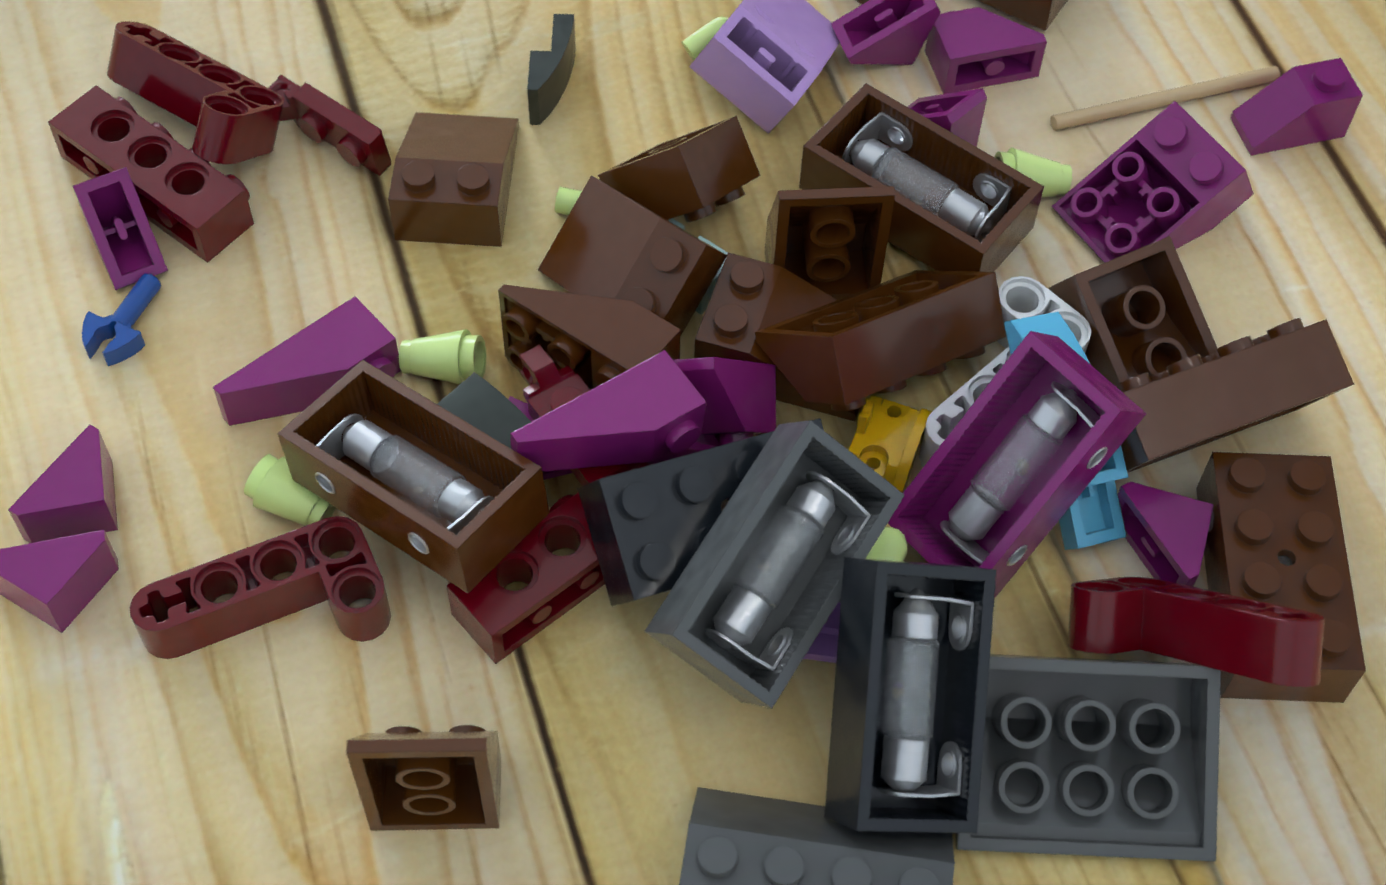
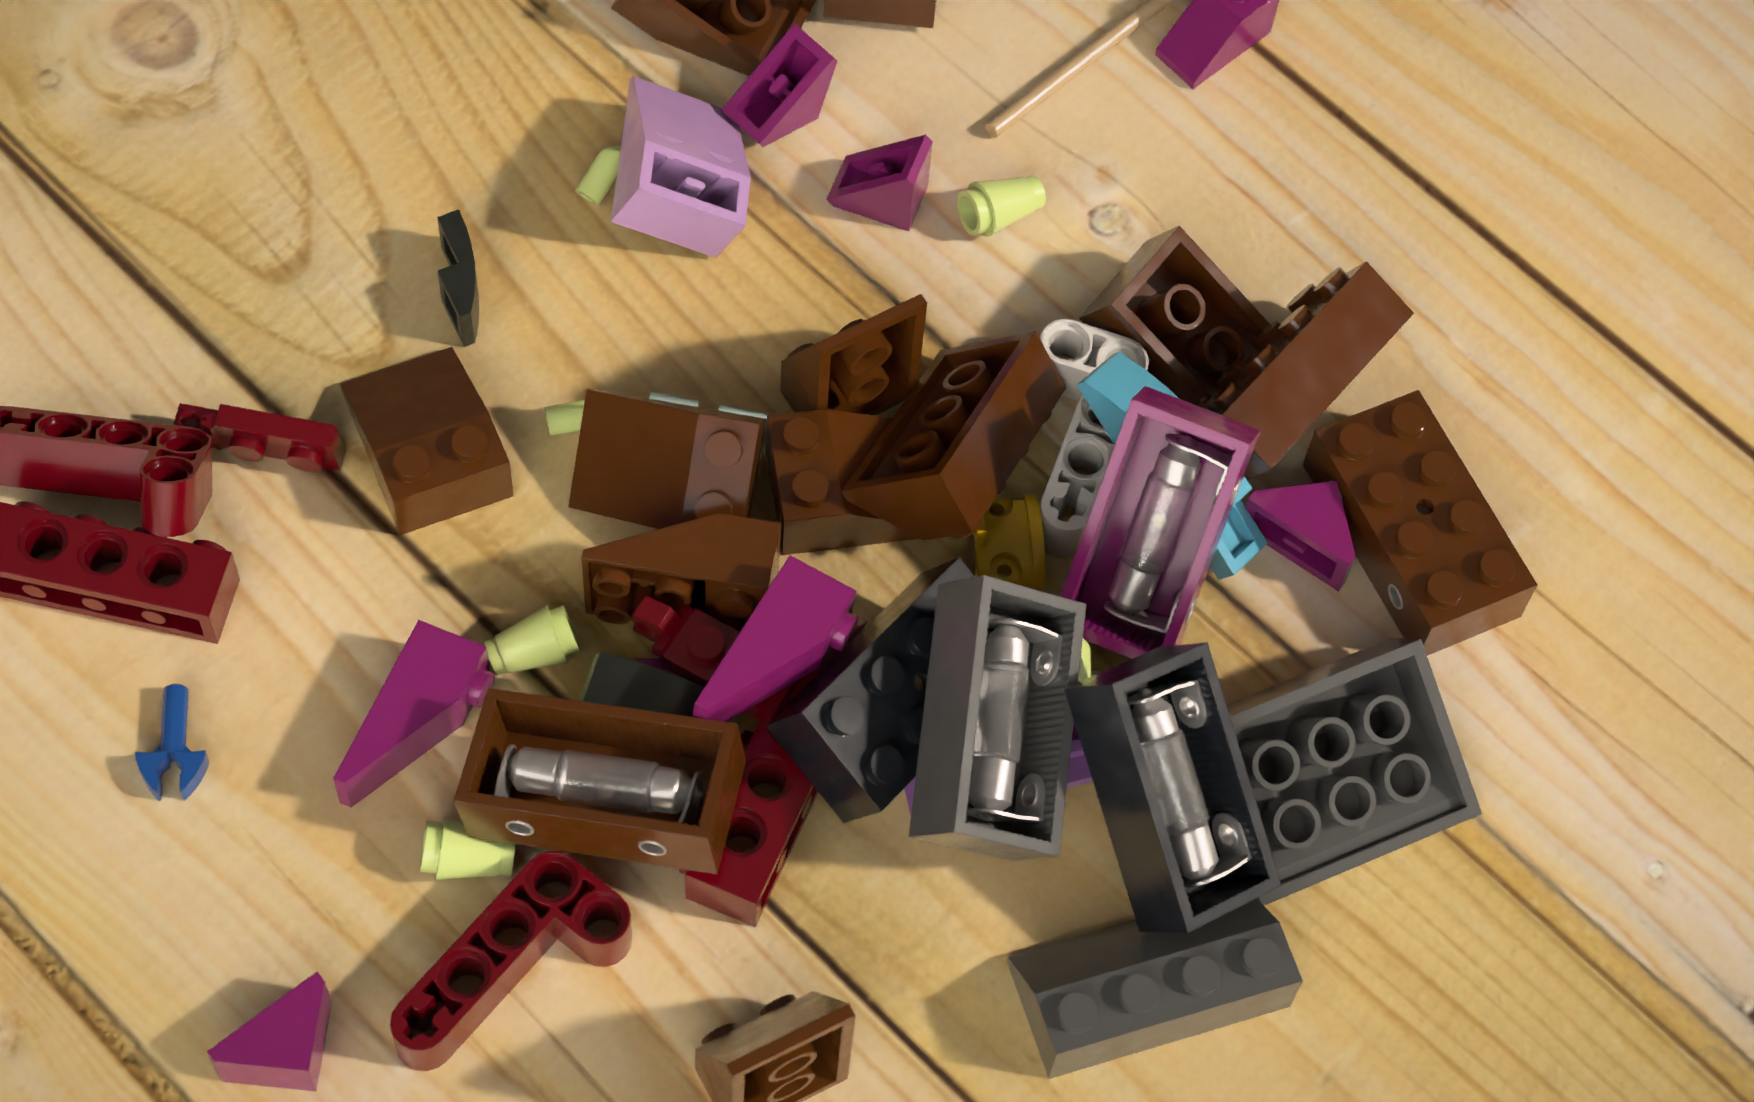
camera: 30 degrees left, 5 degrees up
(71, 494) = (251, 950): magenta slope -> none
(119, 227) = (117, 651): magenta slope -> none
(688, 172) = (669, 341): reddish brown slope -> none
(737, 396) = (857, 559): magenta slope -> none
(951, 198) = (877, 247): reddish brown piece -> none
(982, 50) = (885, 79): magenta slope -> none
(1156, 186) = (1127, 173): magenta slope -> none
(1198, 628) = (1383, 610): dark red beam -> none

